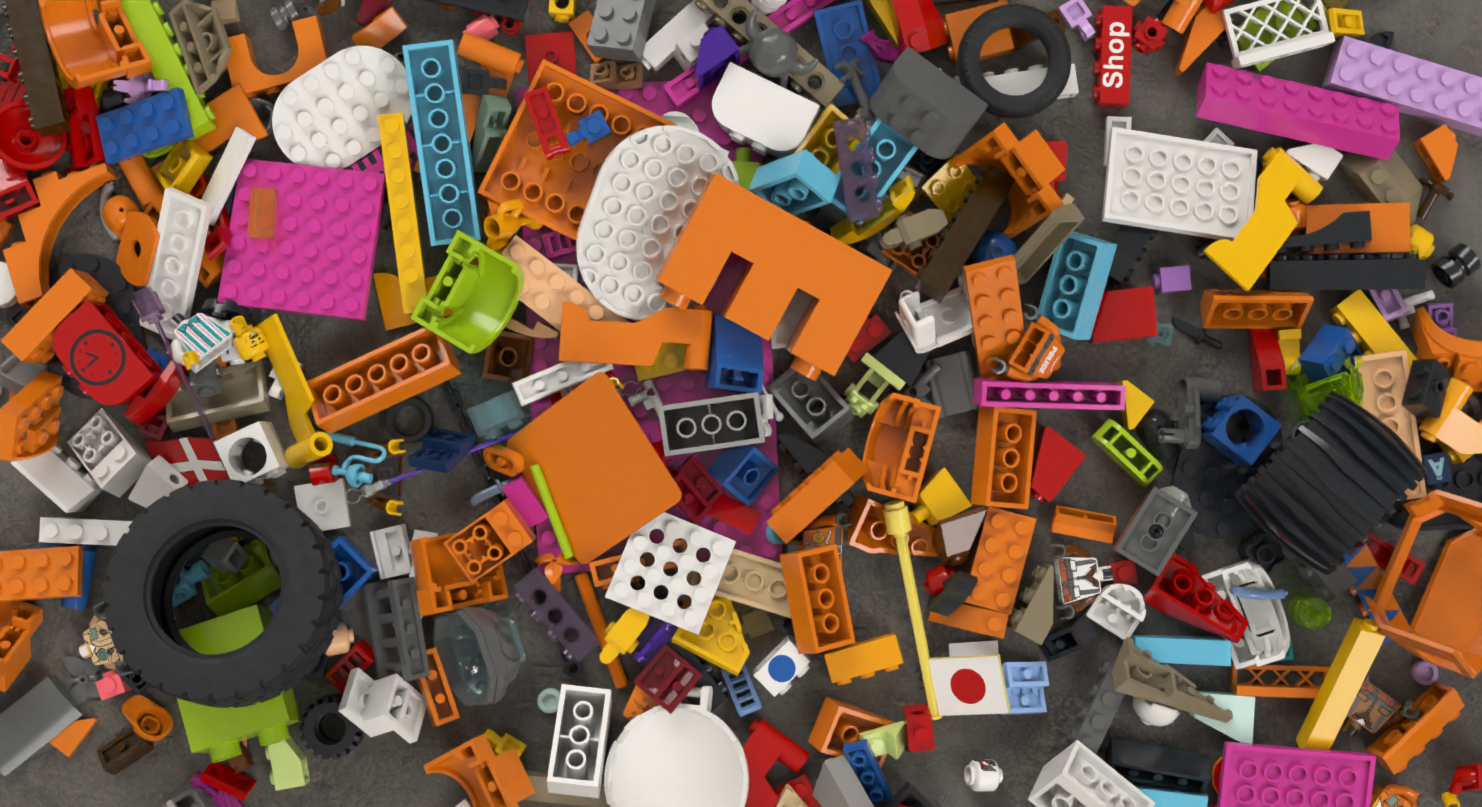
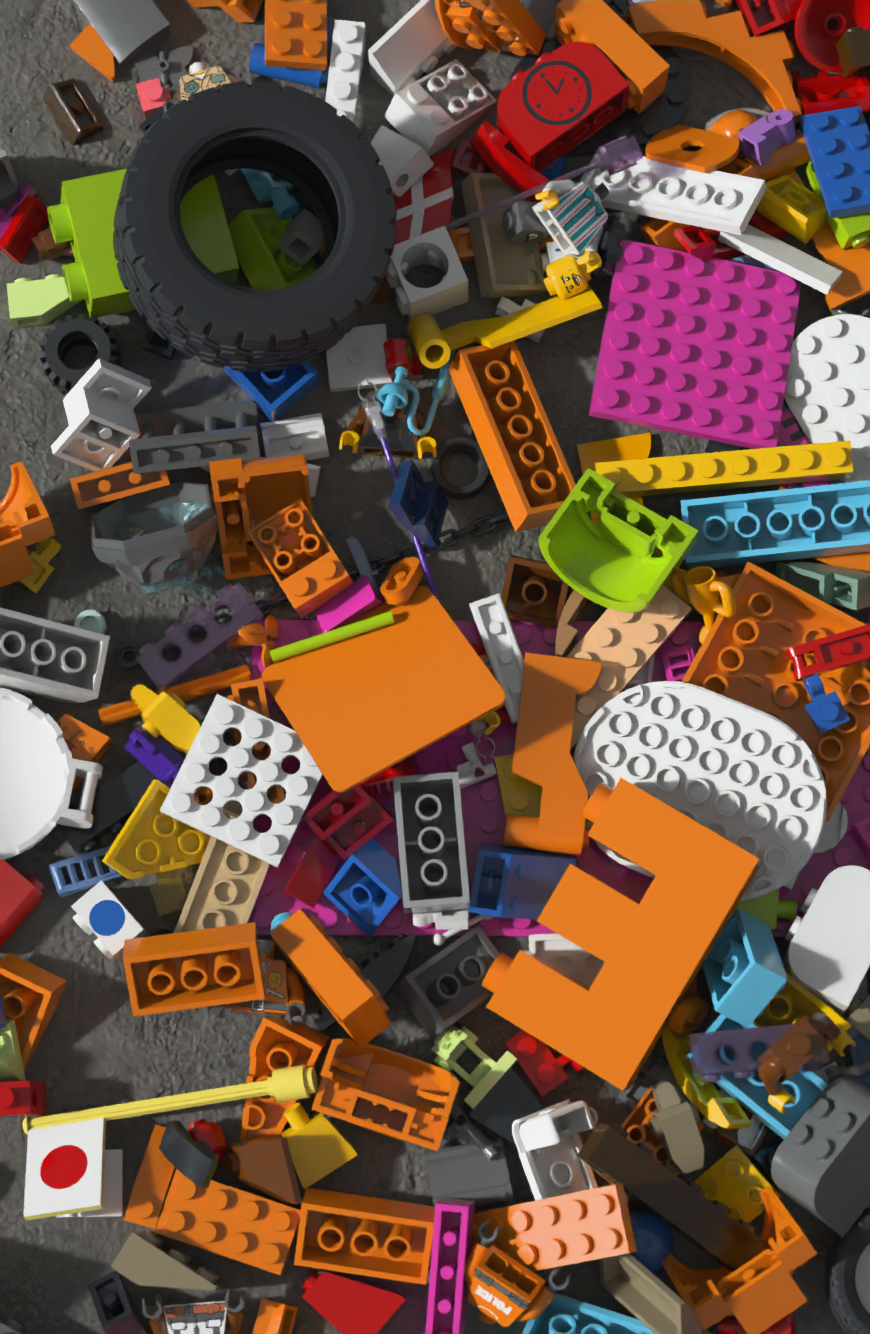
camera: 100 degrees right, 10 degrees down
(124, 189) = (767, 135): none -> medium lavender leg
(147, 714) = (117, 133): orange cap -> none
(262, 213) = (730, 297): tile -> none
(342, 639) = (188, 369): light nougat head -> none
(362, 653) = (168, 397): red slope -> none
(498, 414) = (460, 575): clear light blue brick -> none
(668, 678) = (105, 771): dark red slope -> none
(828, 225) = (688, 1015): none -> orange plate
(859, 140) = (794, 1050): none -> reddish brown torso
(863, 658) = (111, 1032): light orange brick -> none
(1025, 686) = (56, 1247): light blue slope -> none

